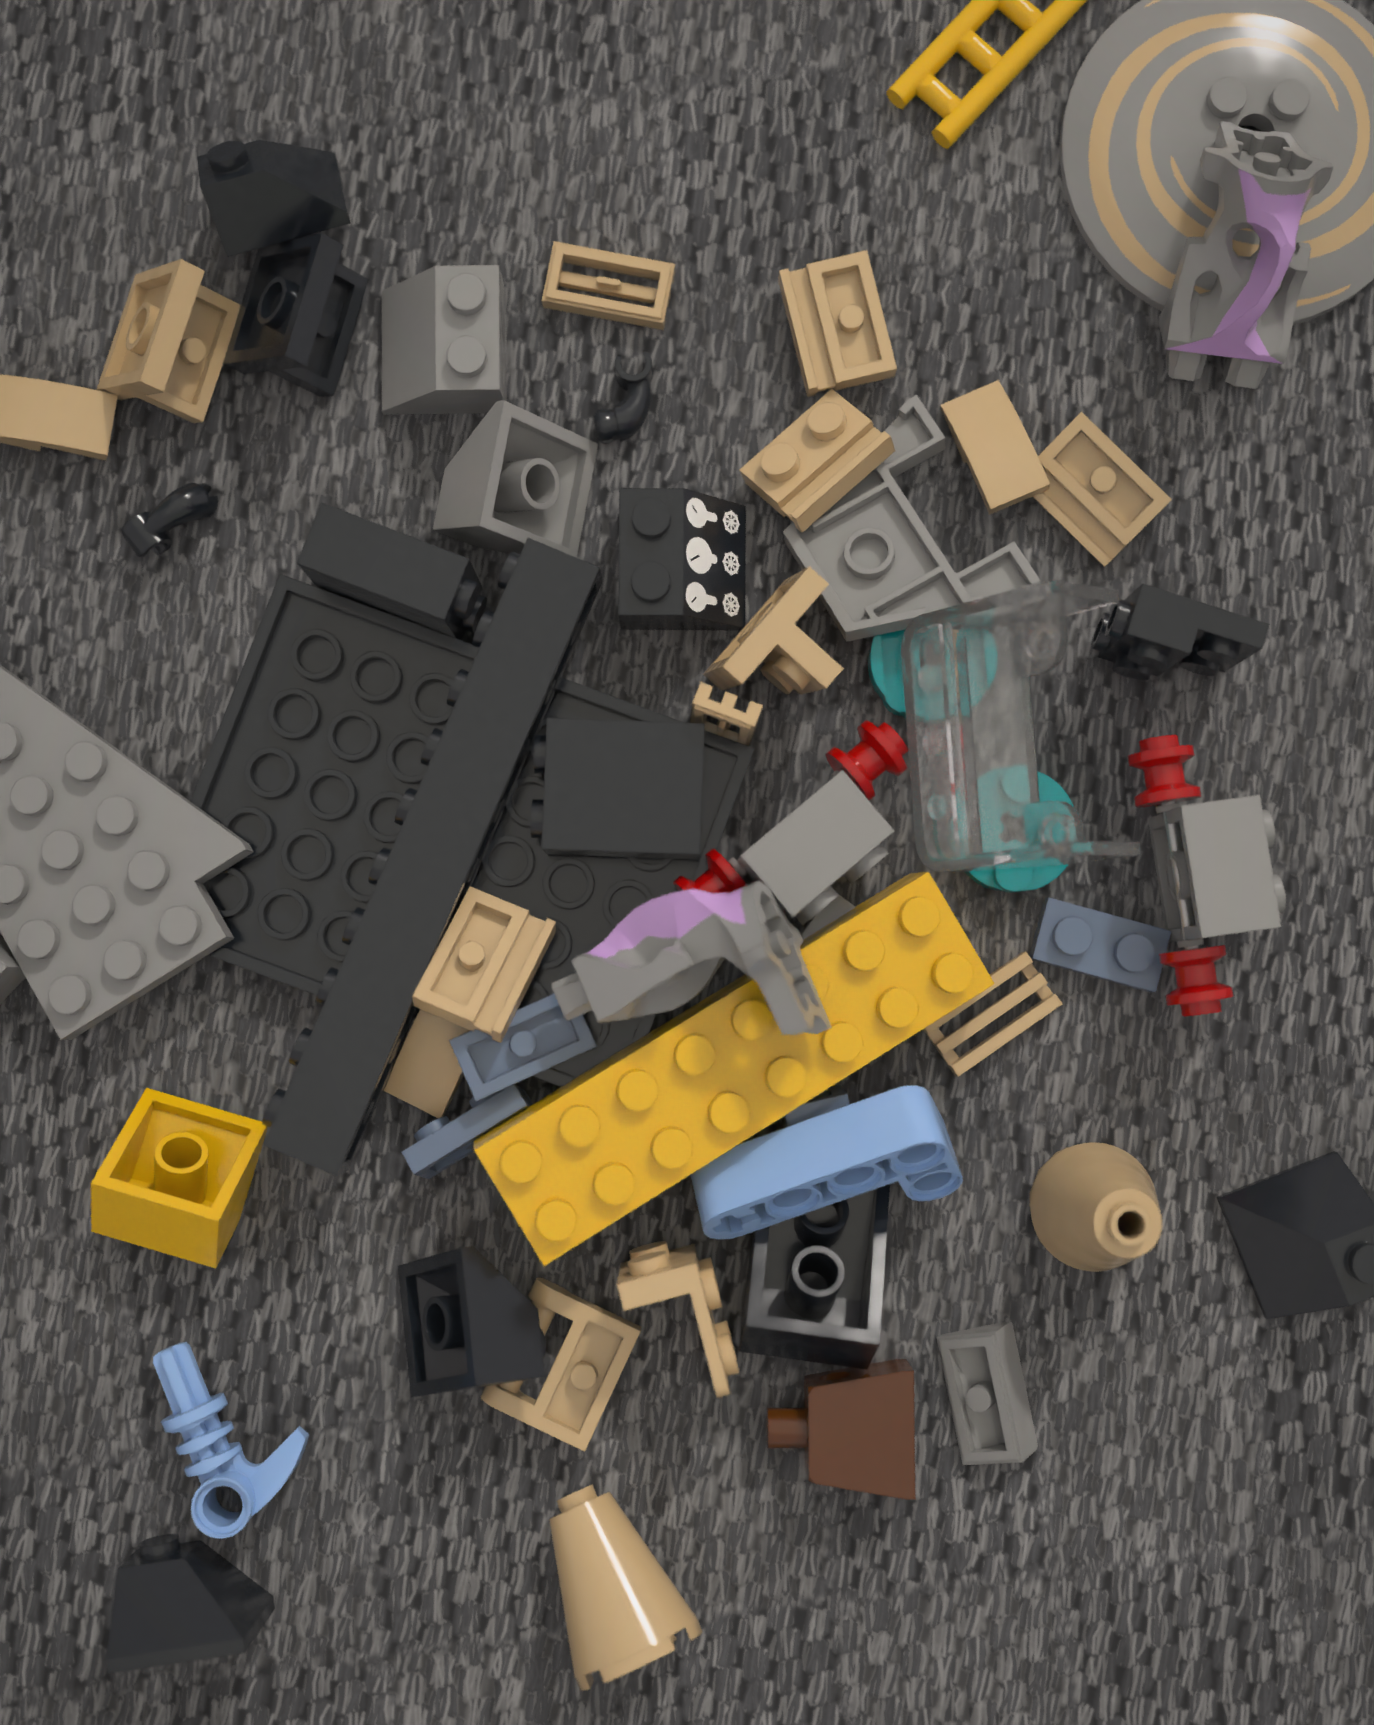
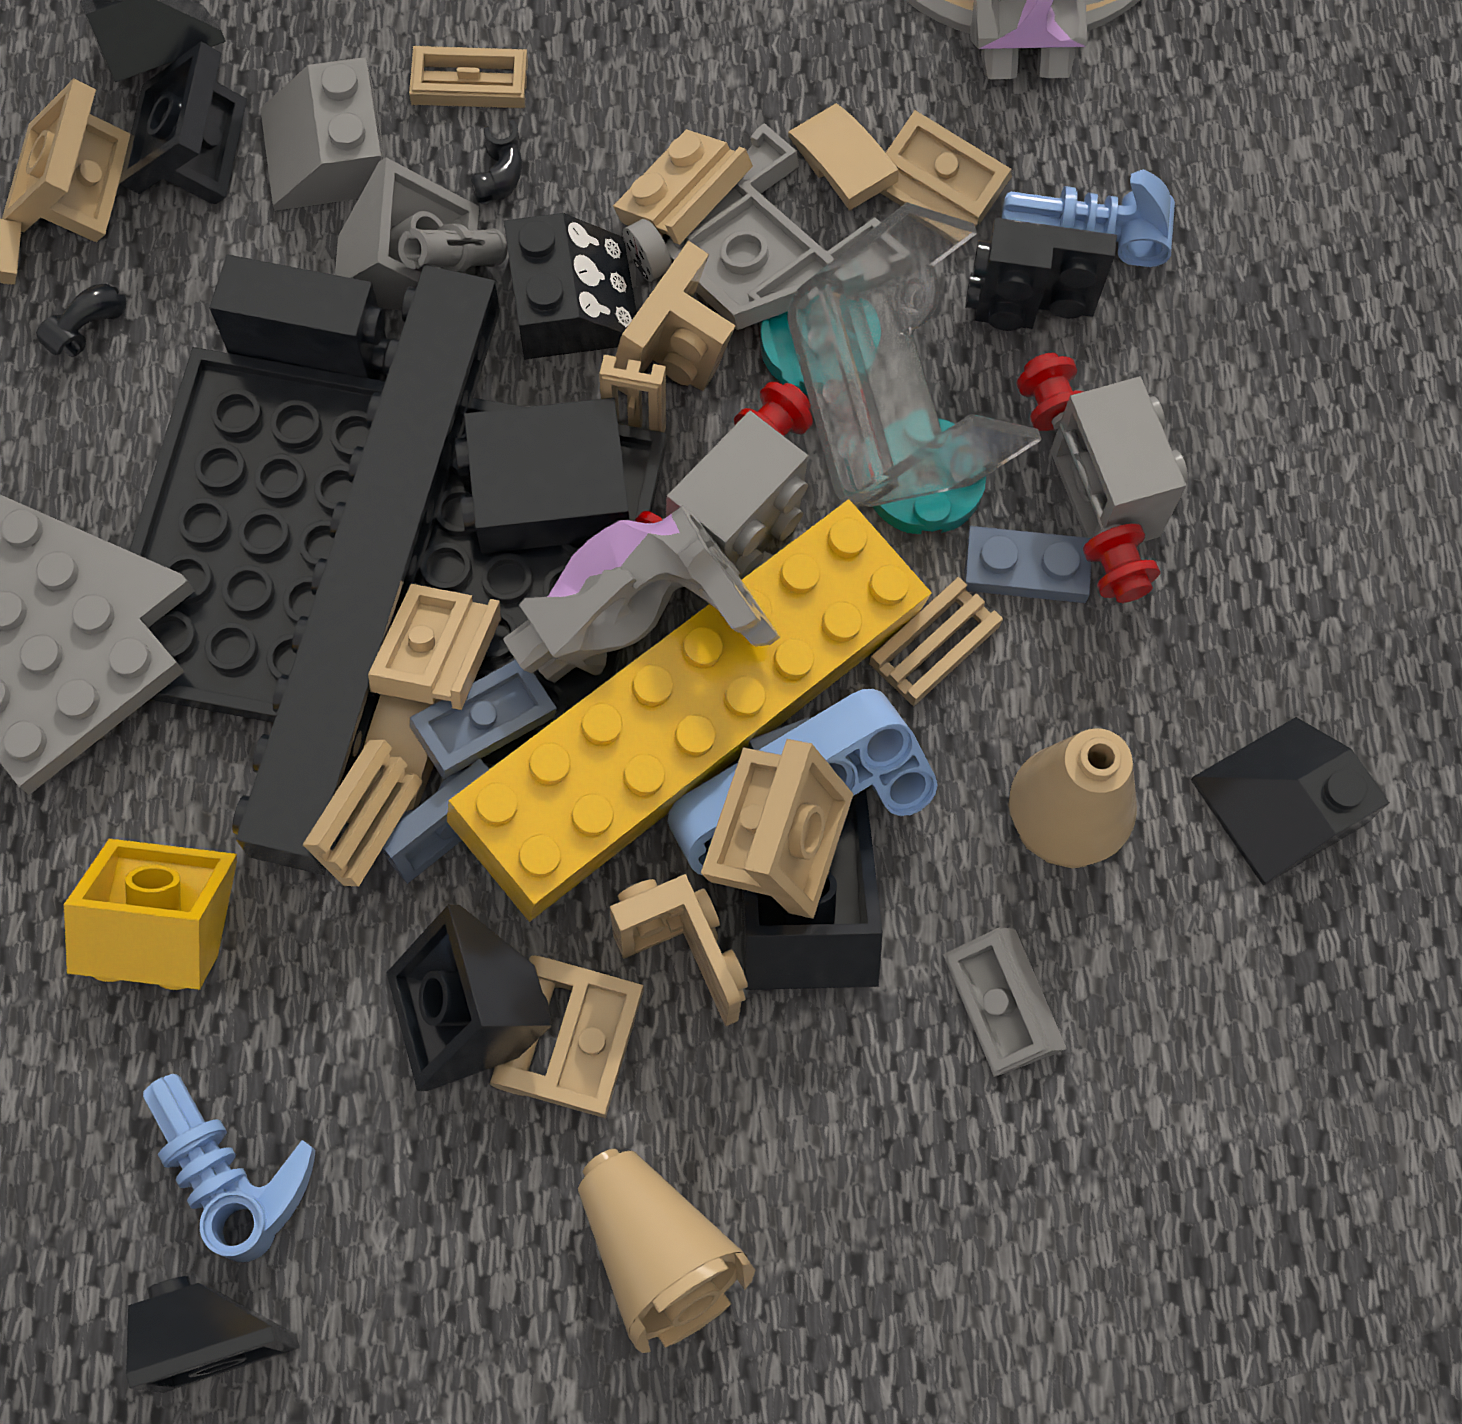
camera: 10 degrees left, 15 degrees down
(391, 1131) = (368, 820): none -> tan tile
(538, 512) = (452, 248): none -> light grey pin
(767, 530) = (647, 249): none -> light grey tile
(792, 1236) = (780, 826): none -> tan bracket
(837, 323) = (682, 76): tan plate -> none
(854, 1429) = (876, 1048): reddish brown torso -> none
(1295, 582) = (1140, 223): none -> light blue piece

